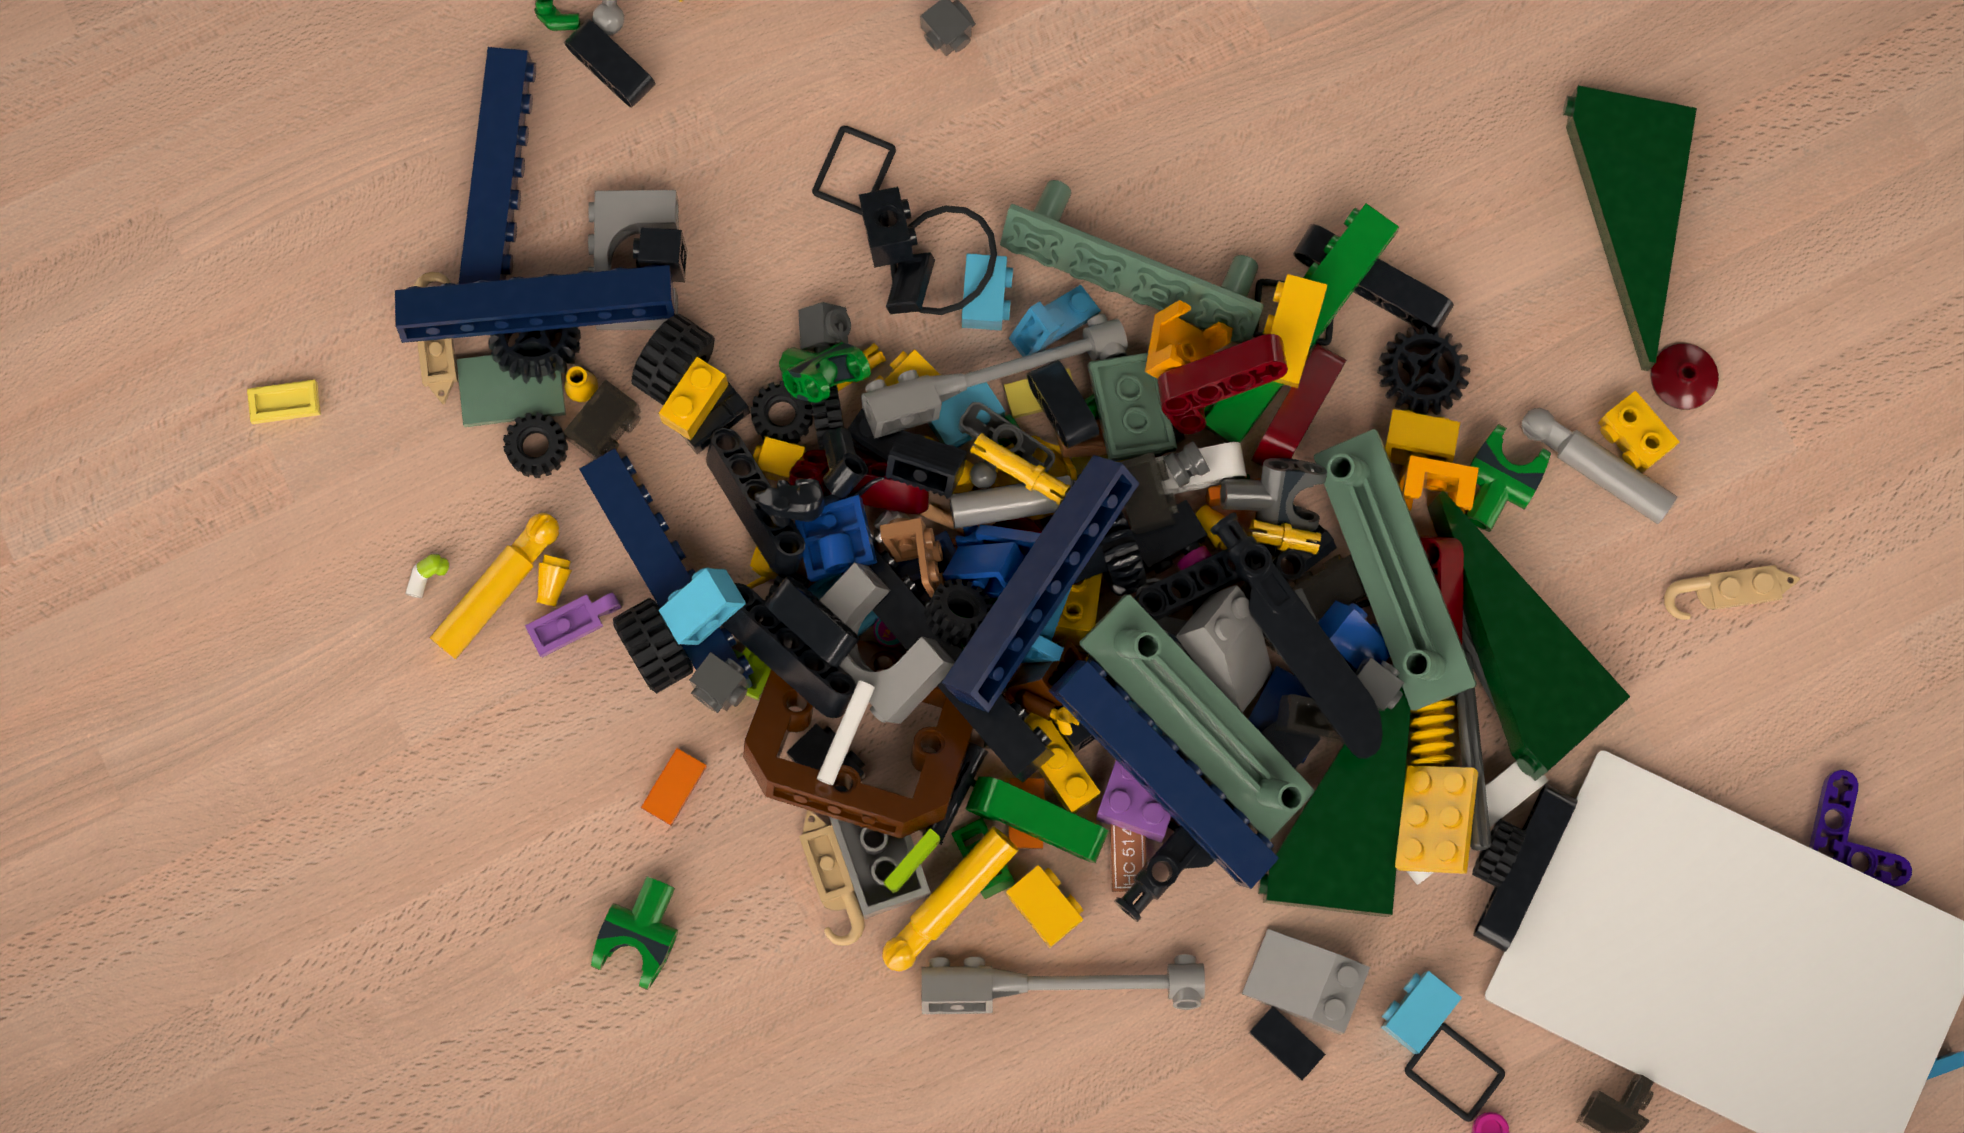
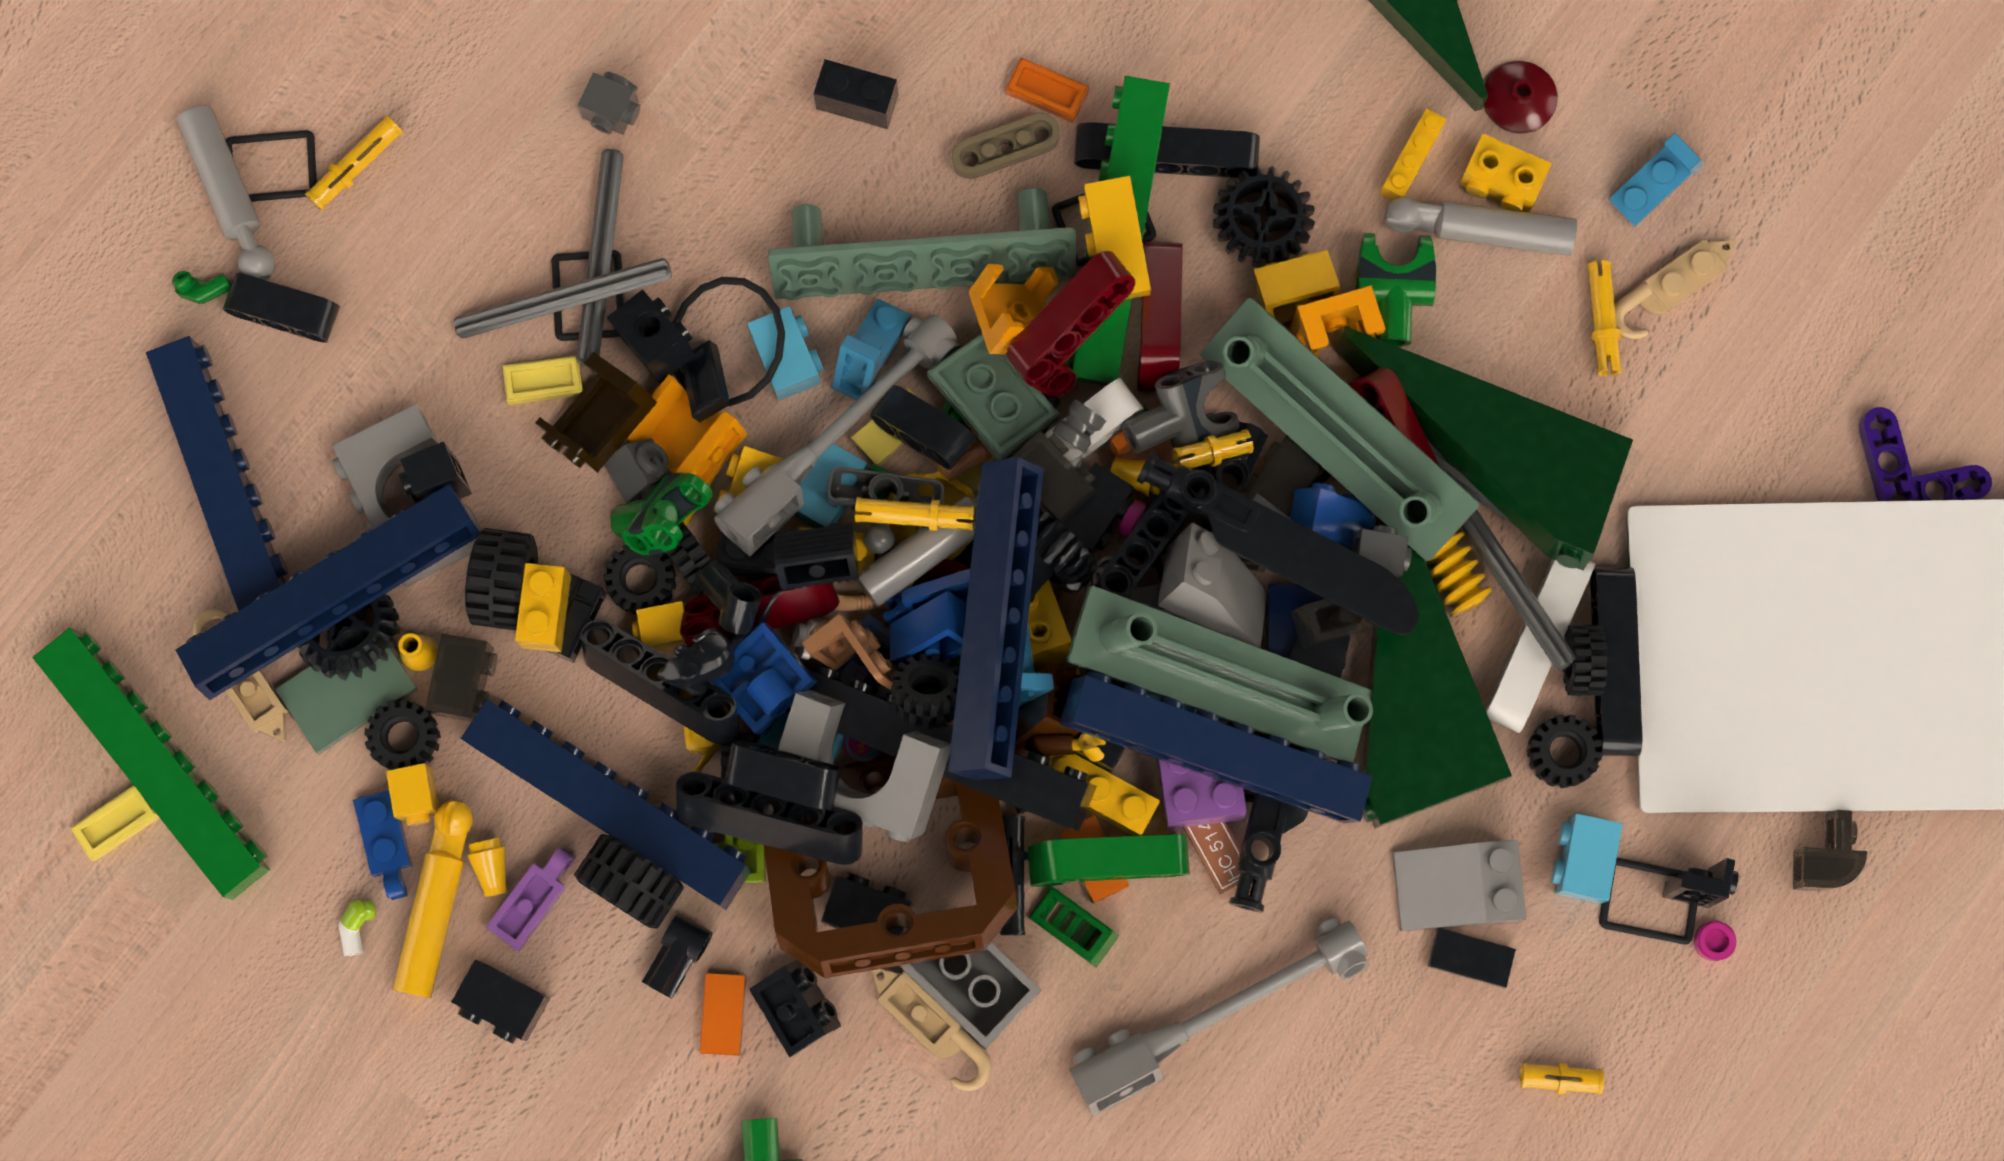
camera: 25 degrees left, 0 degrees up
(334, 370) = (152, 763): none -> green brick
(481, 519) = (383, 842): none -> blue plate
(507, 689) = (500, 1001): none -> black brick
(521, 493) = (413, 793): none -> yellow brick
(670, 717) = (682, 946): none -> black piece
(701, 606) = (660, 816): medium azure brick -> none
(719, 683) = (718, 886): dark grey brick -> none
(733, 809) = (795, 1007): none -> black bracket
(785, 220) = (542, 380): none -> light yellow tile
(813, 270) = (599, 416): none -> dark brown panel
(832, 162) = (563, 298): none -> dark grey axle
(845, 733) = (875, 872): white piece -> none
(872, 326) = (688, 443): none -> light orange panel
(877, 145) = (600, 250): none -> dark grey axle
(912, 861) = (1008, 967): lime tile -> none
(949, 899) = (1063, 986): yellow piece -> none
(1045, 905) = (1162, 943): yellow brick -> none
(1146, 113) = (856, 94): none -> black brick
(1260, 208) = (1017, 134): none -> dark tan plate
(1302, 184) = (1047, 90): none -> orange tile
(1436, 819) = (1508, 658): yellow plate -> none
(1461, 902) = (1584, 738): none -> black tyre
(1499, 1082) = (1703, 886): none -> black bracket
(1571, 380) = (1413, 155): none -> yellow piece
(1655, 600) = (1604, 318): none -> yellow pin
(1761, 497) = (1656, 180): none -> dark azure bracket

